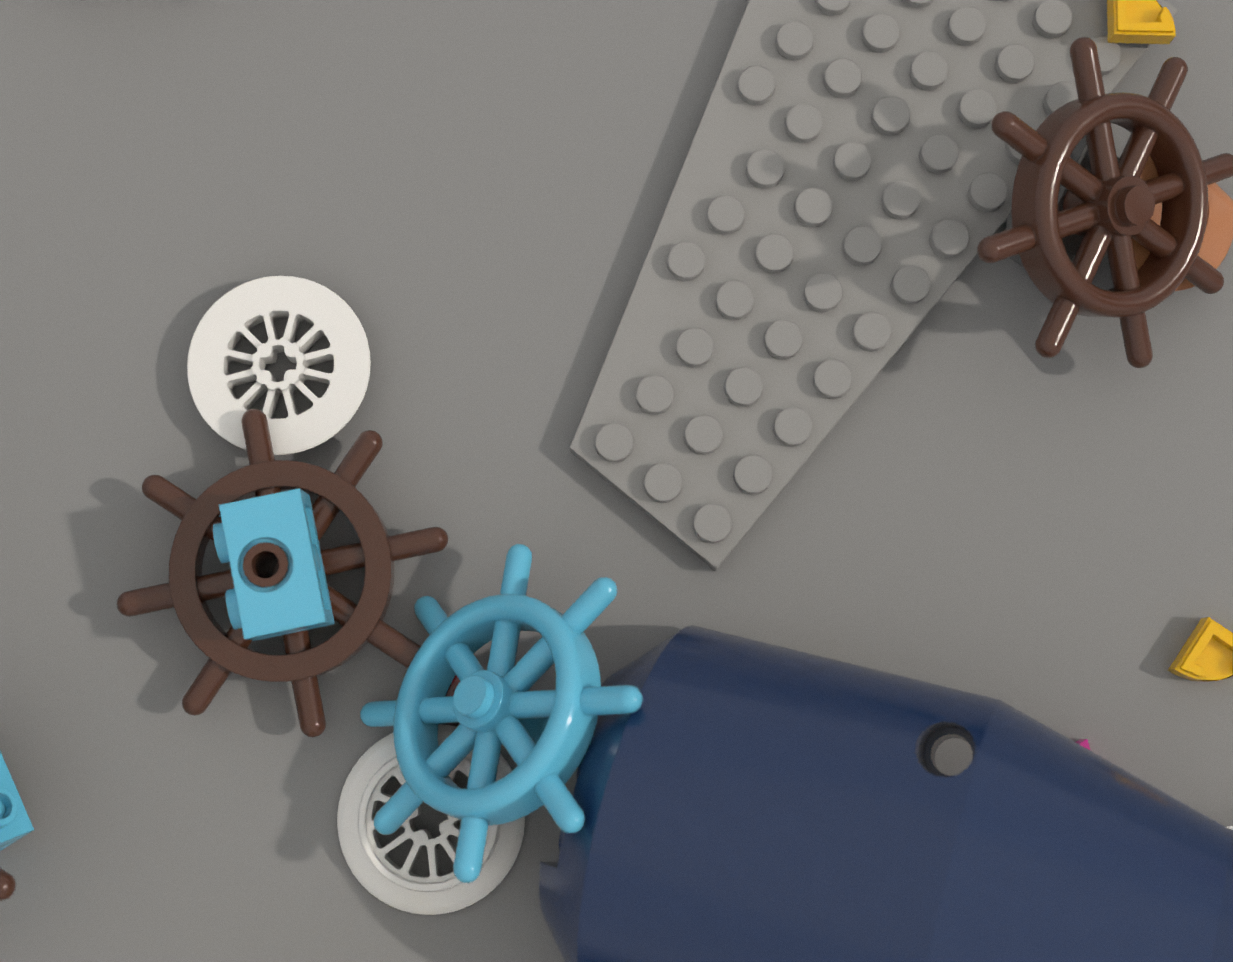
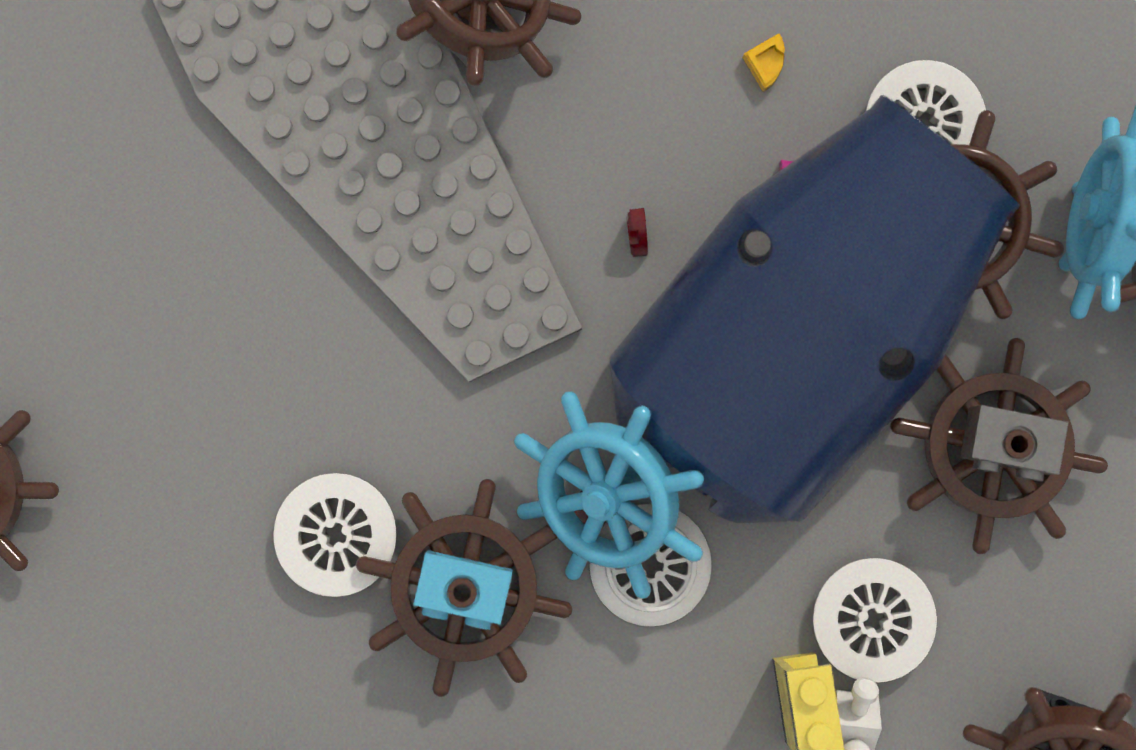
camera: 60 degrees left, 5 degrees up
(885, 583) = (637, 232): none -> dark red tile

